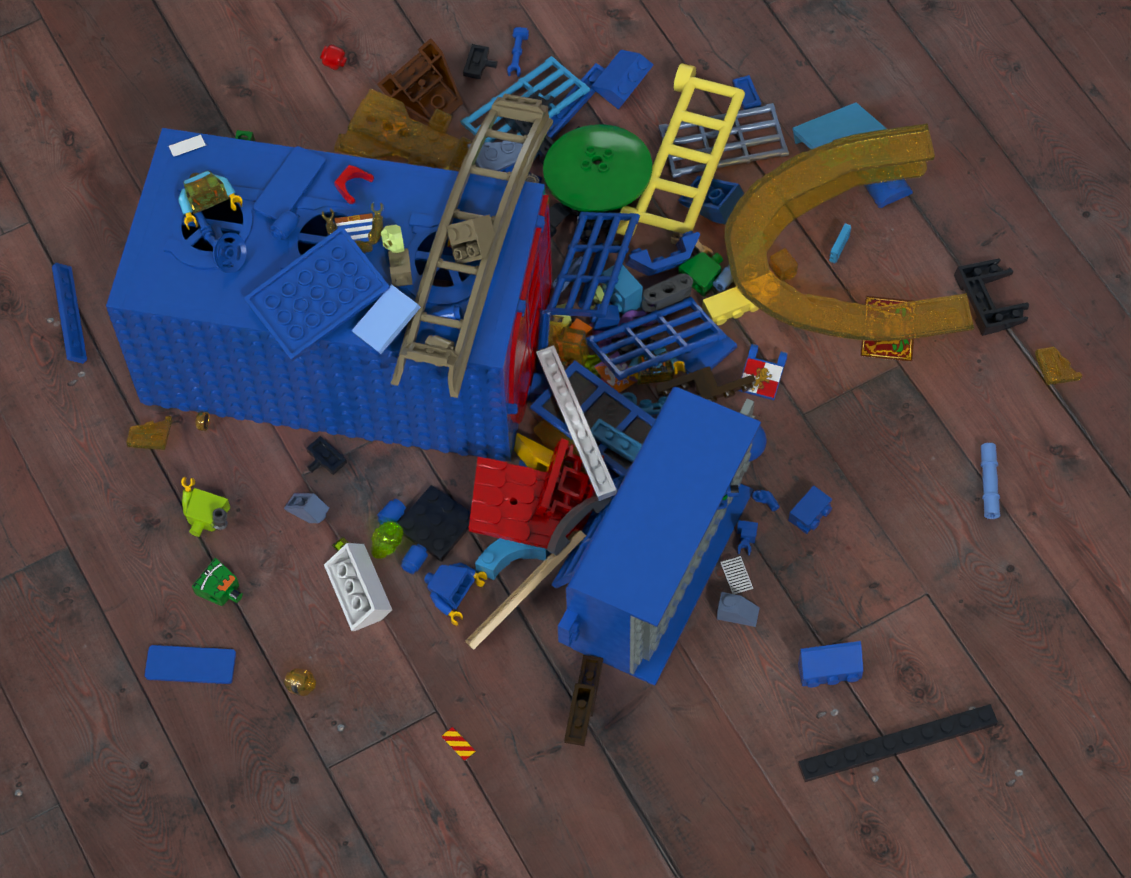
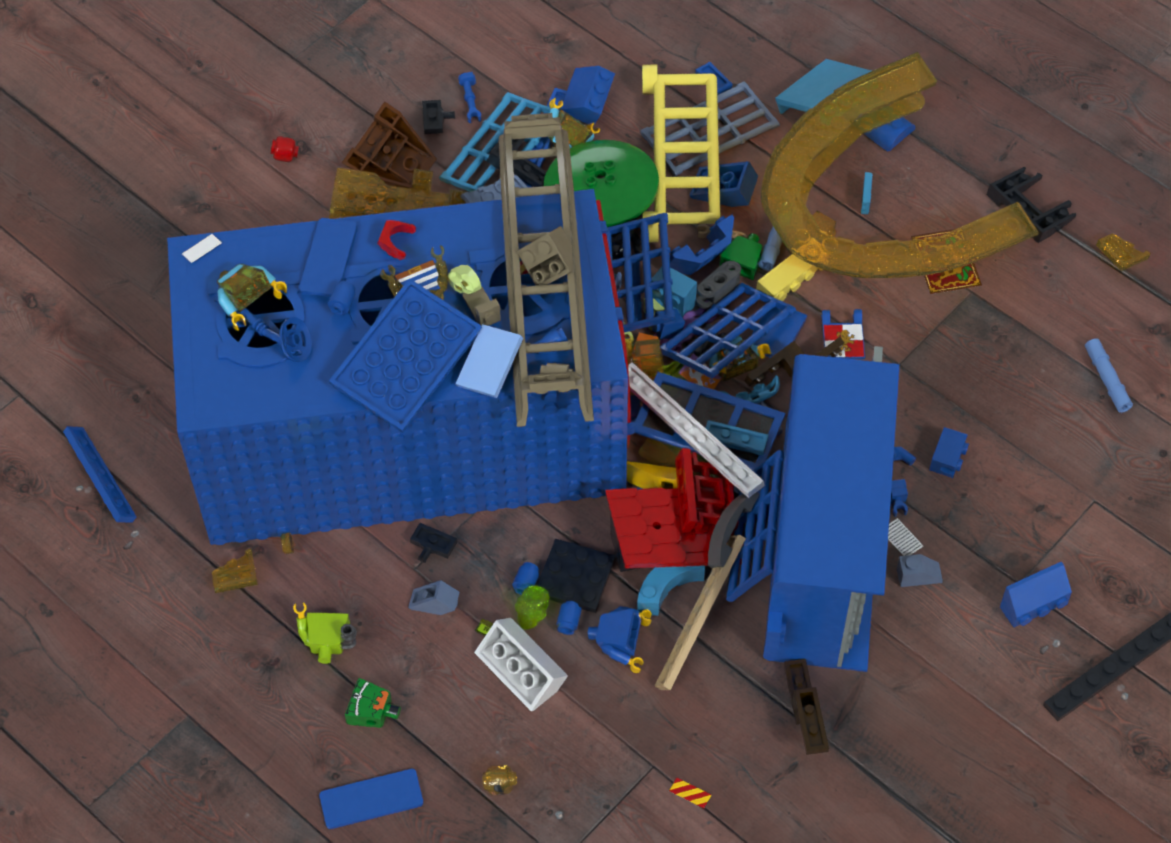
camera: 20 degrees left, 5 degrees down
(588, 108) = (577, 131): none -> clear yellow torso

